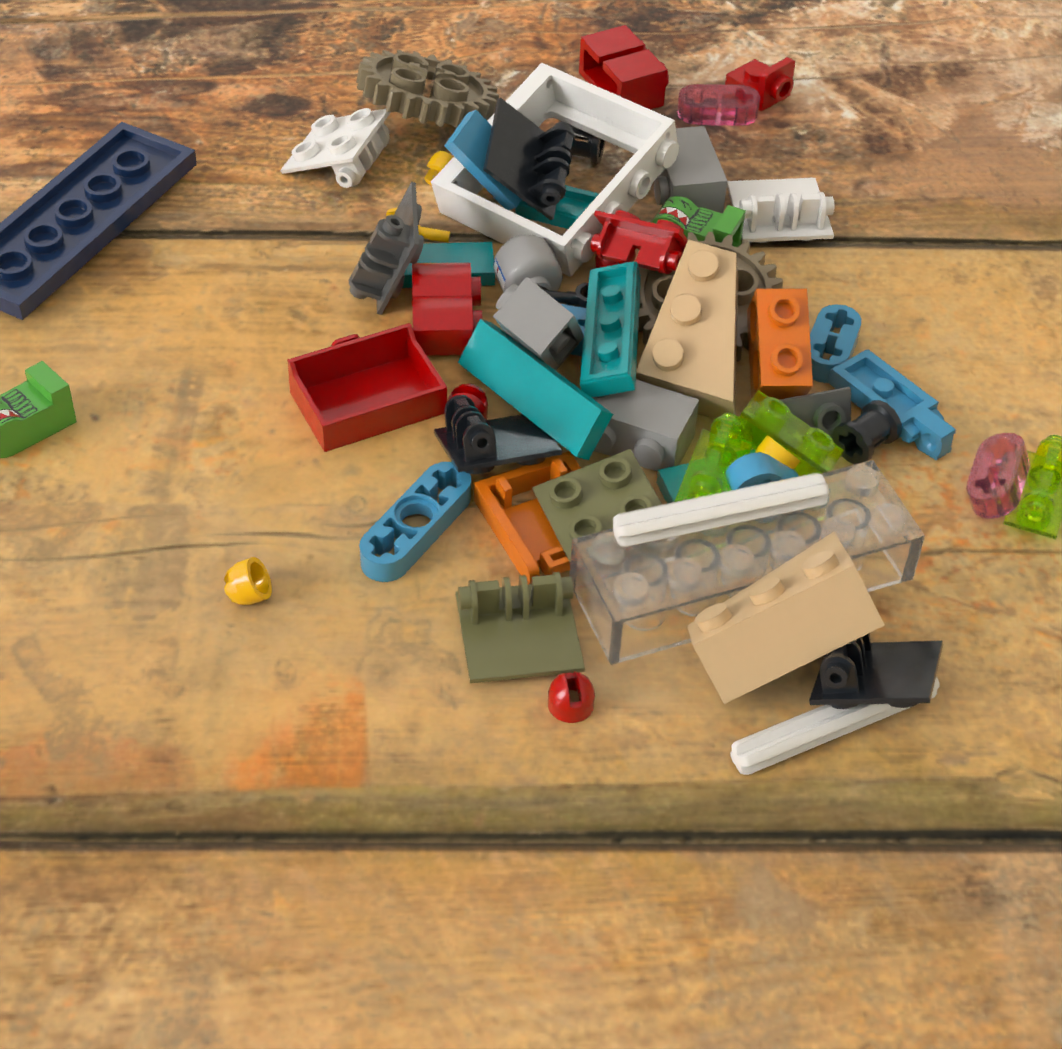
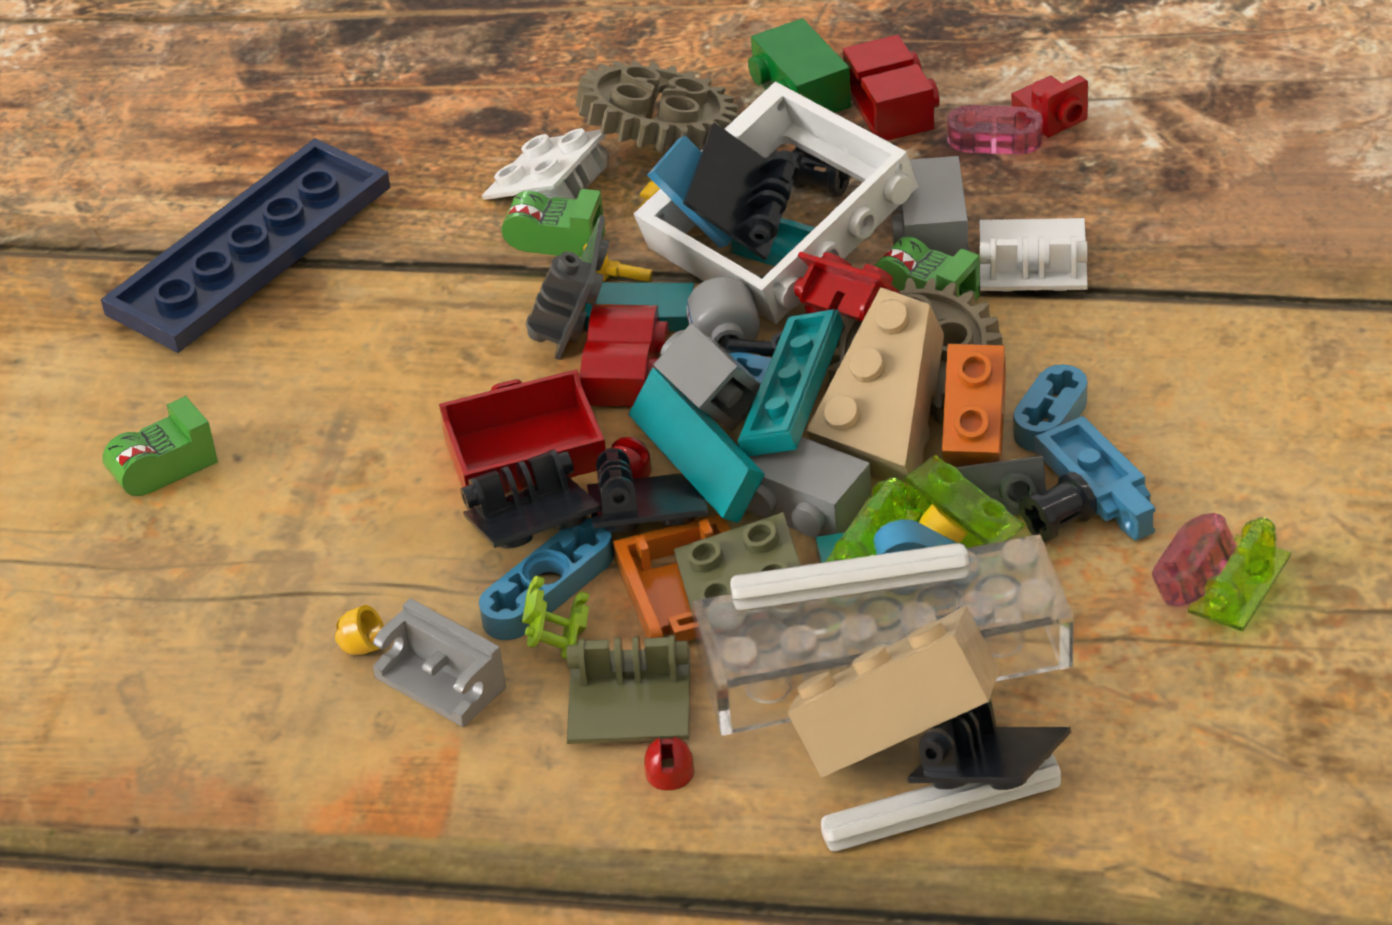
camera: 15 degrees right, 5 degrees down
(332, 610) = (439, 663): none -> light grey hinge
(354, 192) = (553, 223): none -> bright green leg
(388, 450) = (515, 518): none -> black hinge
(419, 558) = (536, 614): none -> lime piece
(537, 41) = (801, 62): none -> green brick

